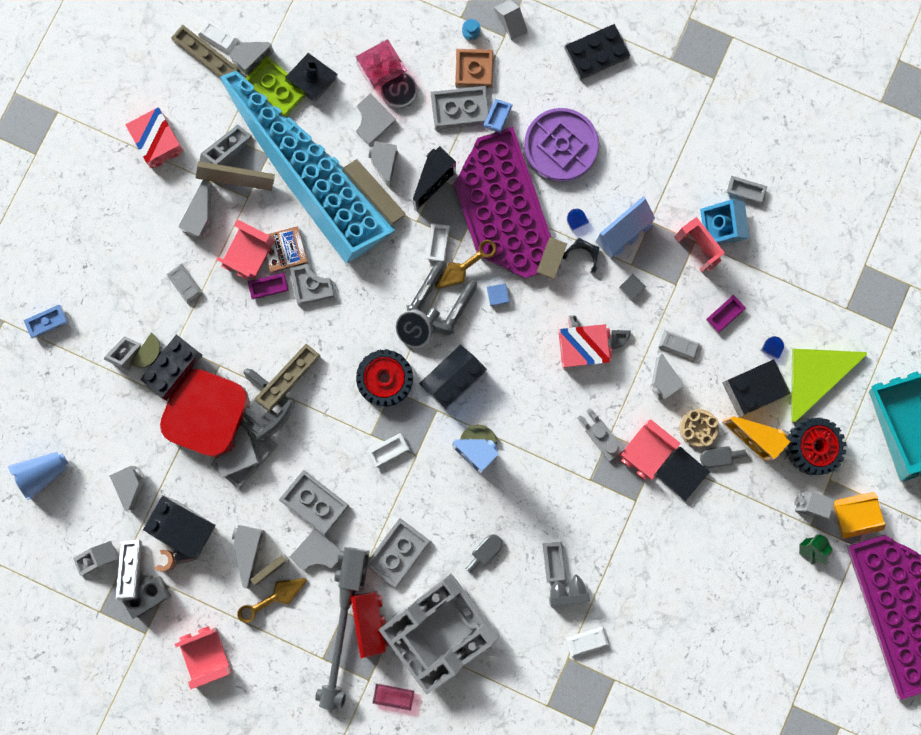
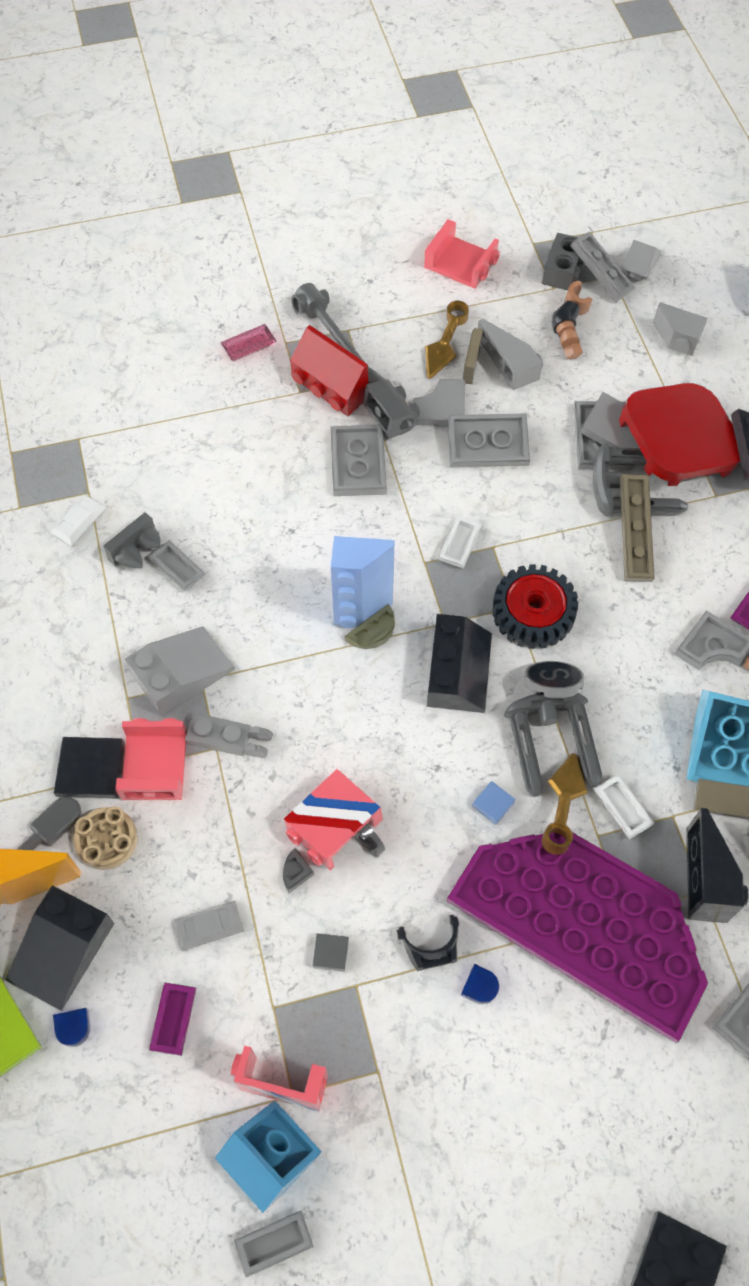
camera: 145 degrees right, 20 degrees down
(179, 527) = (597, 323): black slope -> none
(439, 633) = (248, 412): light grey slope -> none
(485, 552) = (263, 524): dark grey piece -> none
(497, 116) = (713, 1040): medium blue tile -> none
(551, 258) = (467, 894): dark tan tile -> none
(561, 144) = (593, 1077): medium lavender plate -> none
(598, 493) = (178, 668): none -> light grey slope
(626, 228) = (402, 1019): light blue slope -> none
(664, 379) = (193, 860): light grey slope -> none

